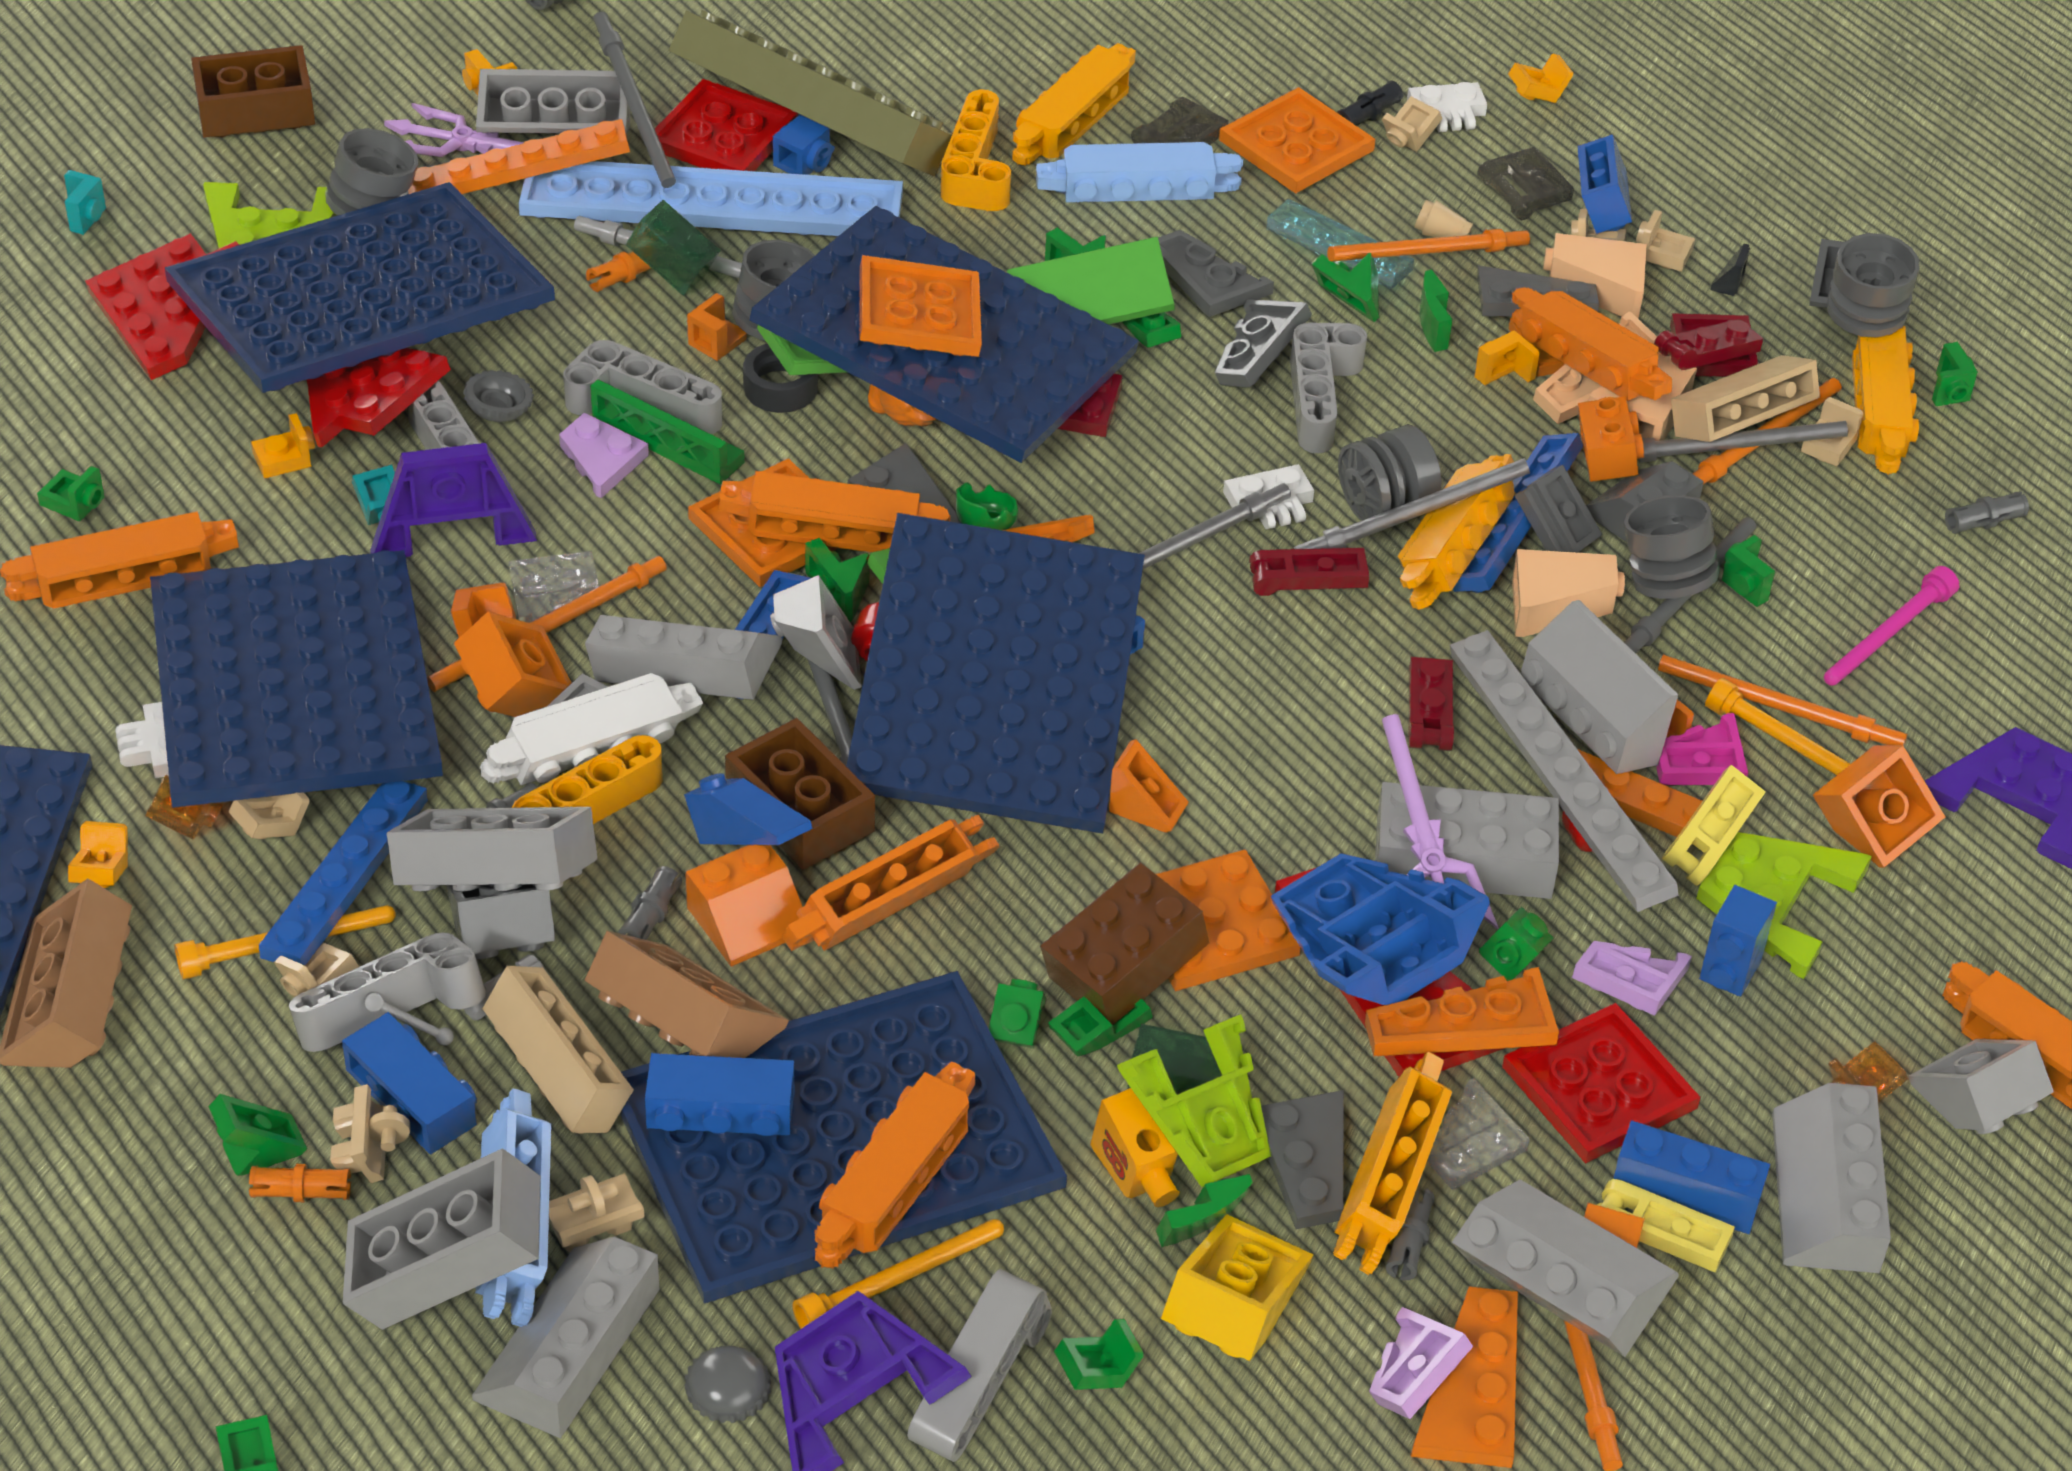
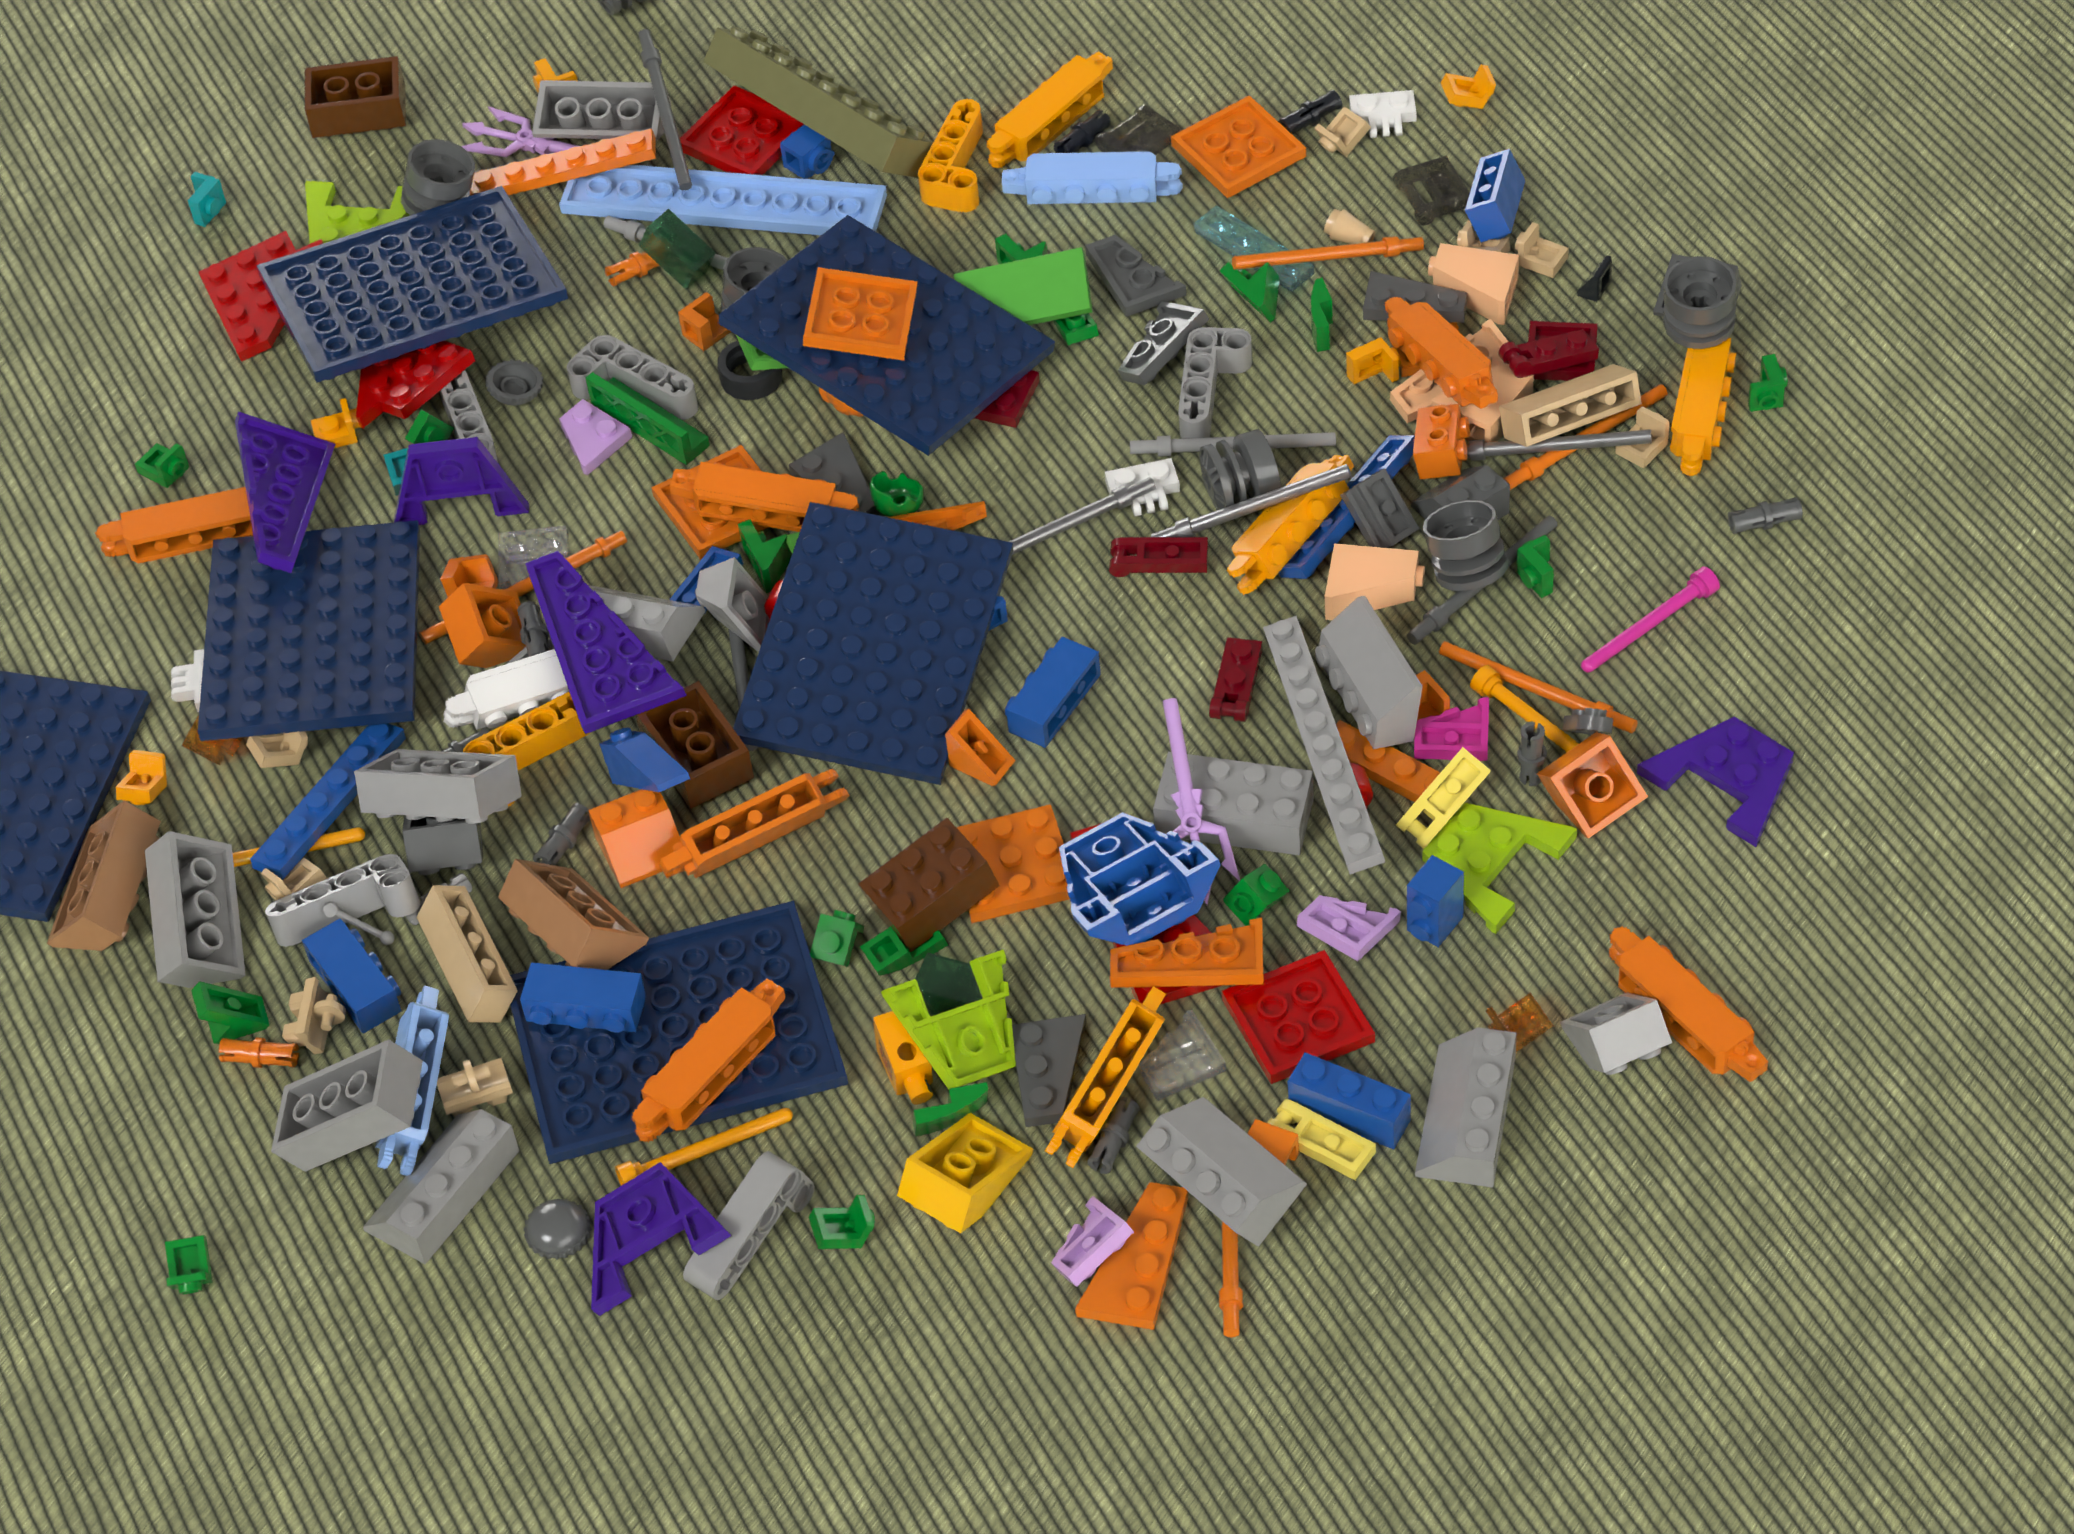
camera: 15 degrees right, 5 degrees up
(193, 1010) = (194, 910): none -> light grey slope
(234, 511) = (281, 484): none -> dark purple wing
(402, 439) = (428, 429): none -> green bracket
(575, 669) = (533, 632): none -> dark grey pin
(668, 687) = (599, 655): none -> dark purple wing
(1118, 126) = (1083, 133): none -> black pin
(1219, 722) = (1052, 691): none -> blue brick
(1288, 452) = (1165, 445): none -> light grey bar
(1805, 772) = (1531, 753): none -> dark grey pin
(1860, 737) = (1588, 721): none -> dark grey plate

